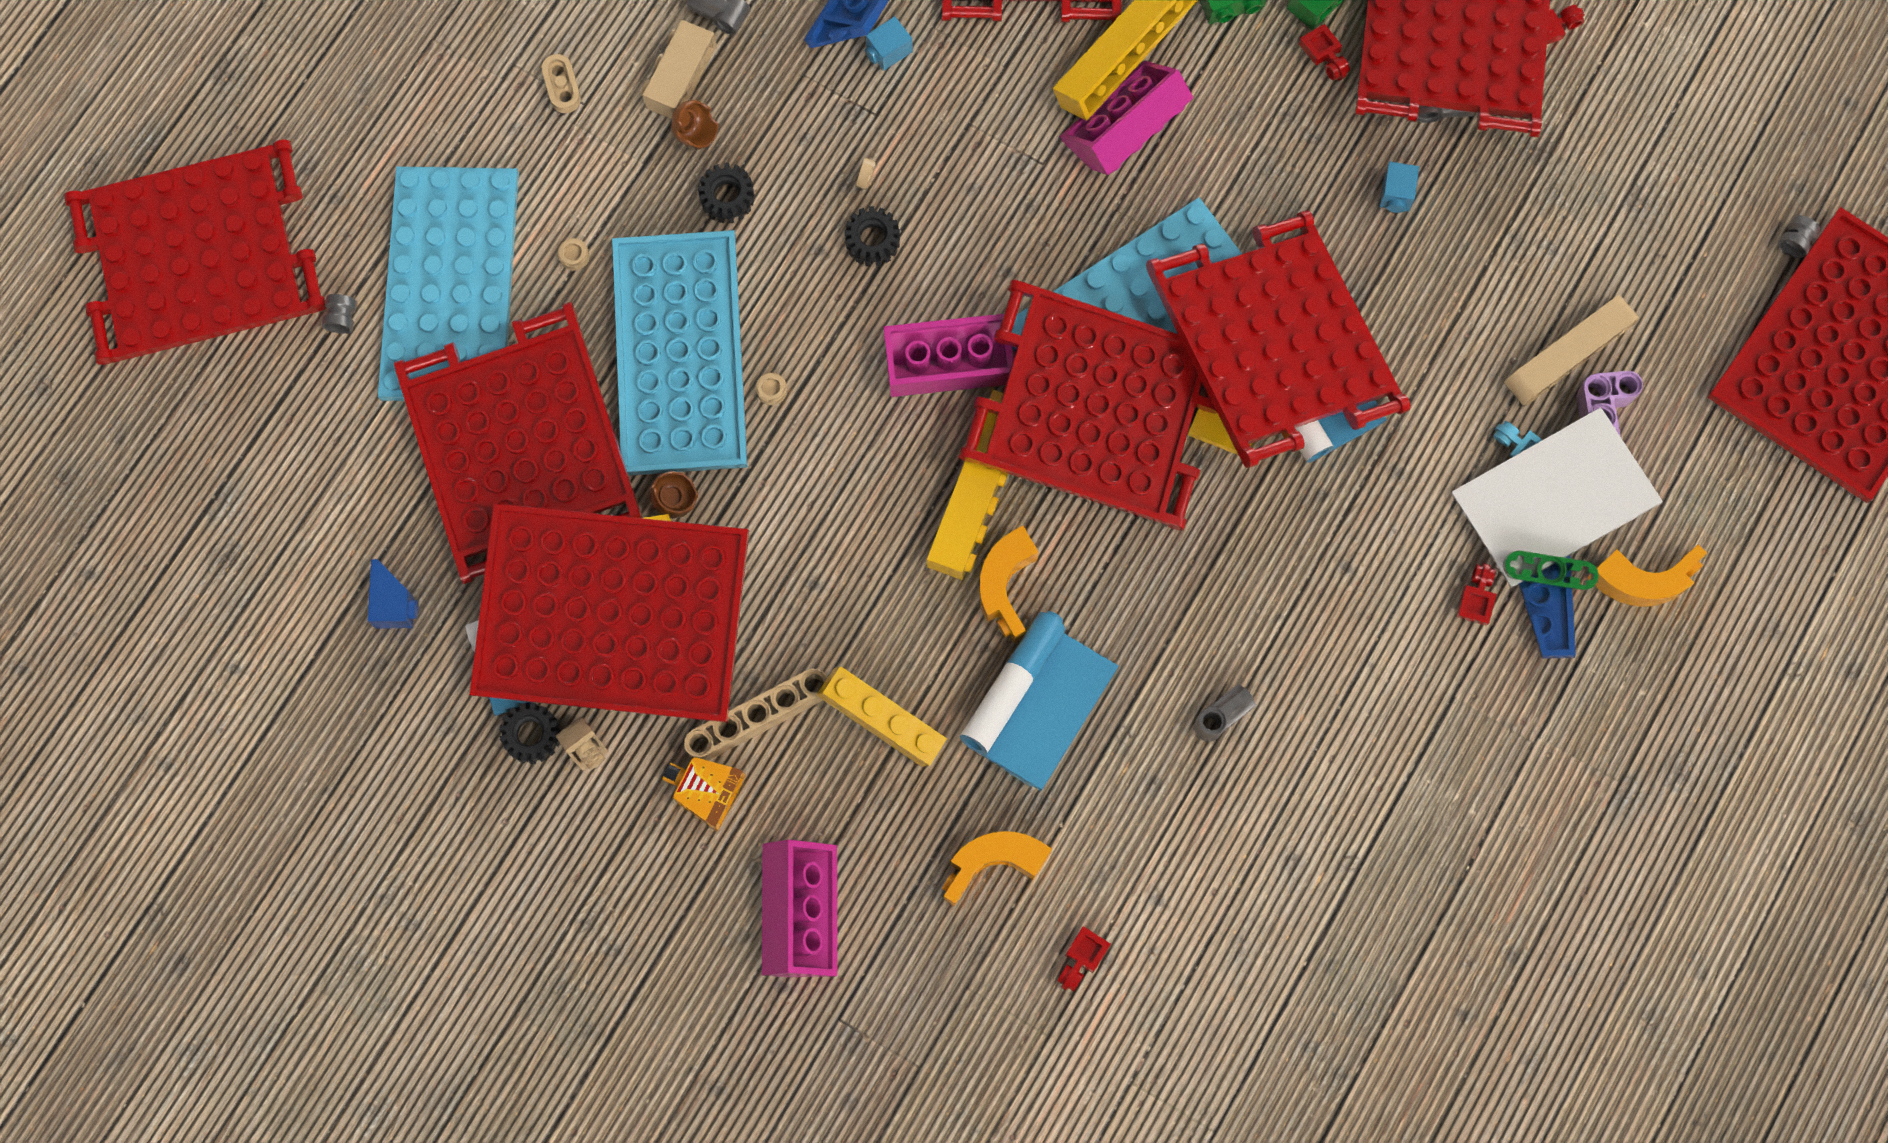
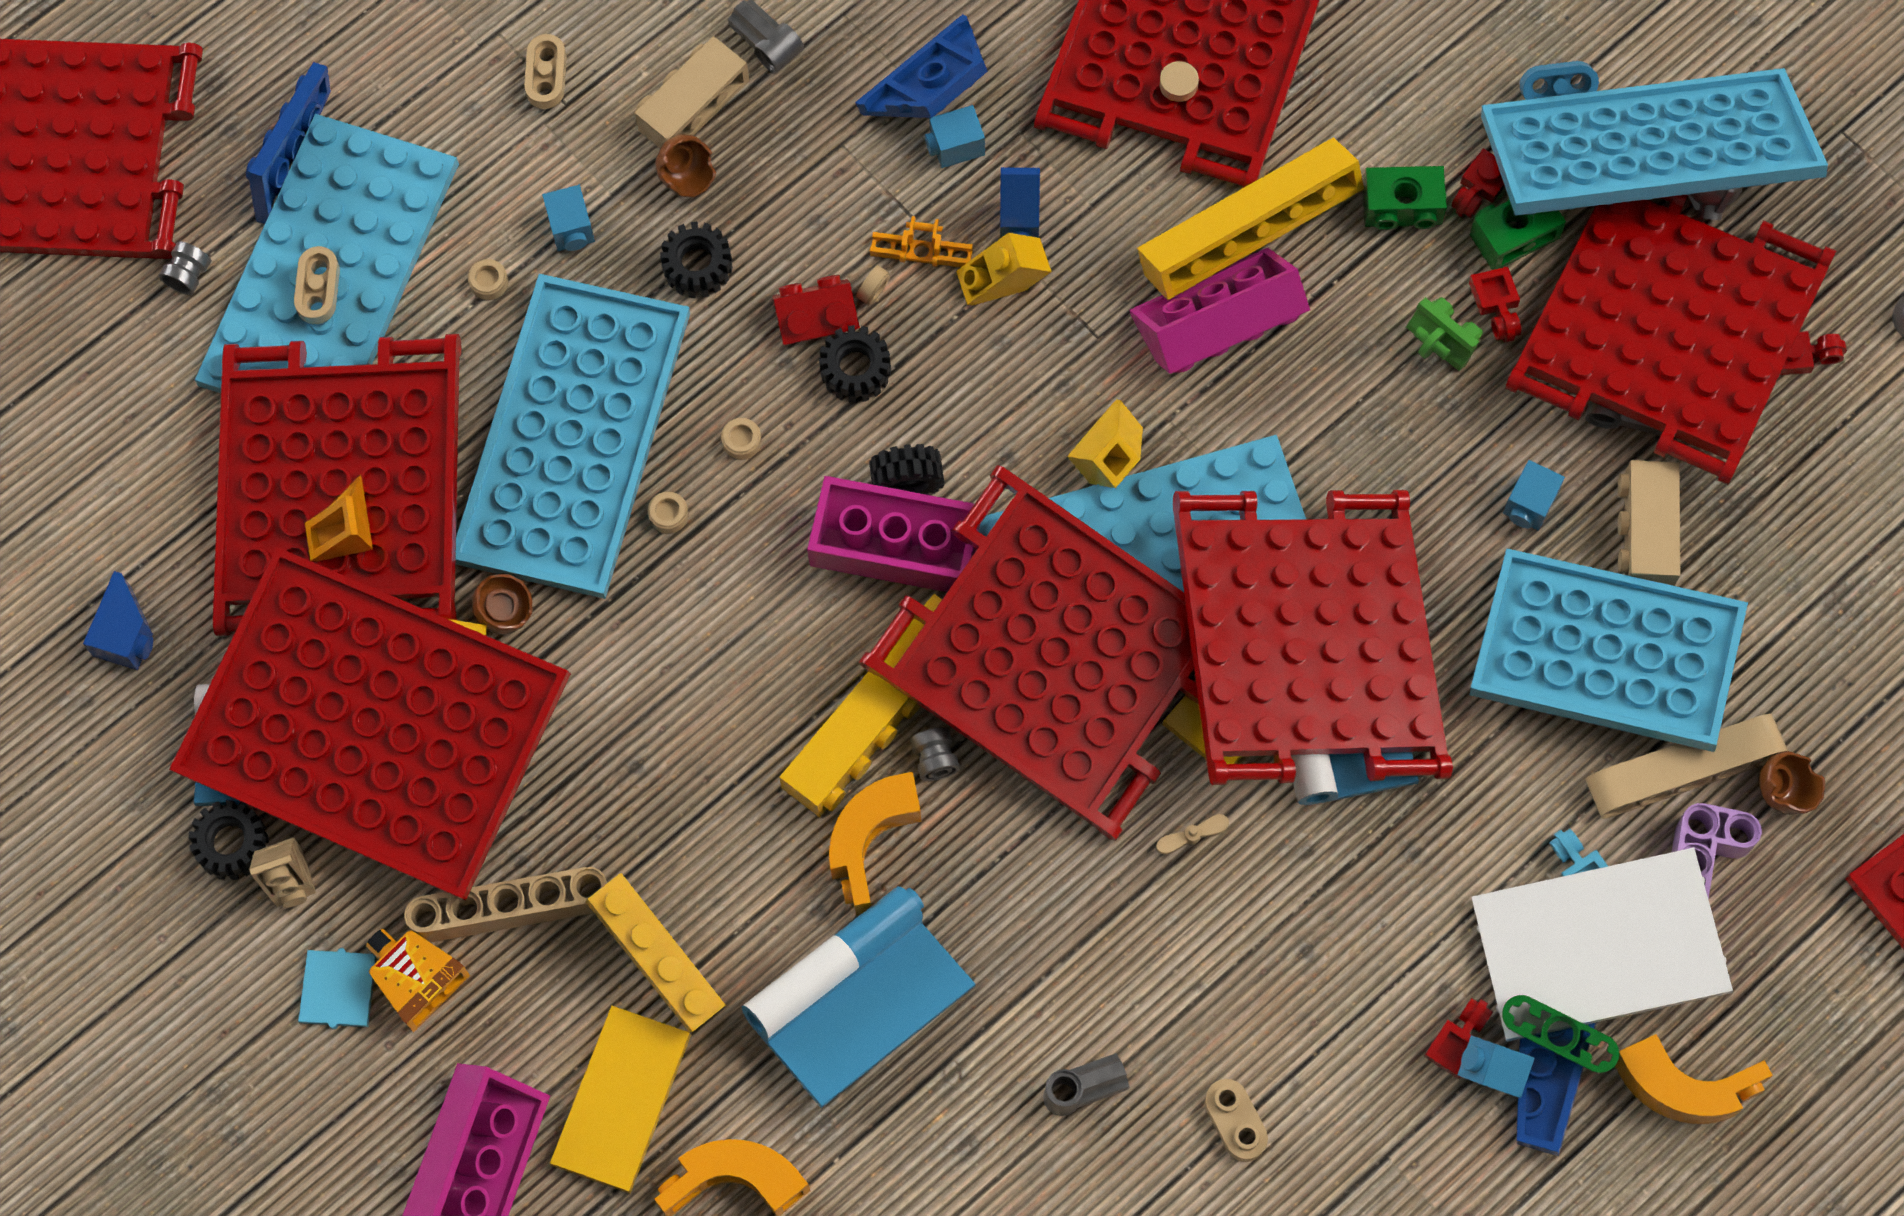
camera: 20 degrees right, 5 degrees down
(381, 196) = (280, 145): none -> blue wing
(448, 298) = (316, 288): none -> tan plate
(533, 473) = (341, 527): none -> light orange slope
(619, 190) = (568, 218): none -> dark azure brick
(650, 817) = (337, 989): none -> medium azure piece
(806, 317) = (741, 438): none -> tan tile
(828, 204) = (815, 309): none -> red bracket
(890, 831) = (620, 1099): none -> yellow tile
(901, 129) = (933, 247): none -> light orange piece
(942, 303) = (908, 469): none -> black tyre
(955, 82) = (1019, 201): none -> blue slope
(958, 133) = (1004, 269): none -> yellow slope
(1033, 507) = (935, 754): none -> flat silver wheel
(1082, 243) = (1109, 447): none -> yellow slope
(1237, 508) = (1212, 826): none -> tan piece
(1294, 87) = (1442, 334): none -> bright green hips
(1335, 707) = (1235, 1119): none -> tan plate
(1489, 183) = (1650, 521): none -> tan brick
(1492, 282) = (1609, 649): none -> medium azure plate
(1512, 608) = (1495, 1066): none -> dark azure brick
(1650, 341) = (1791, 784): none -> dark orange hair

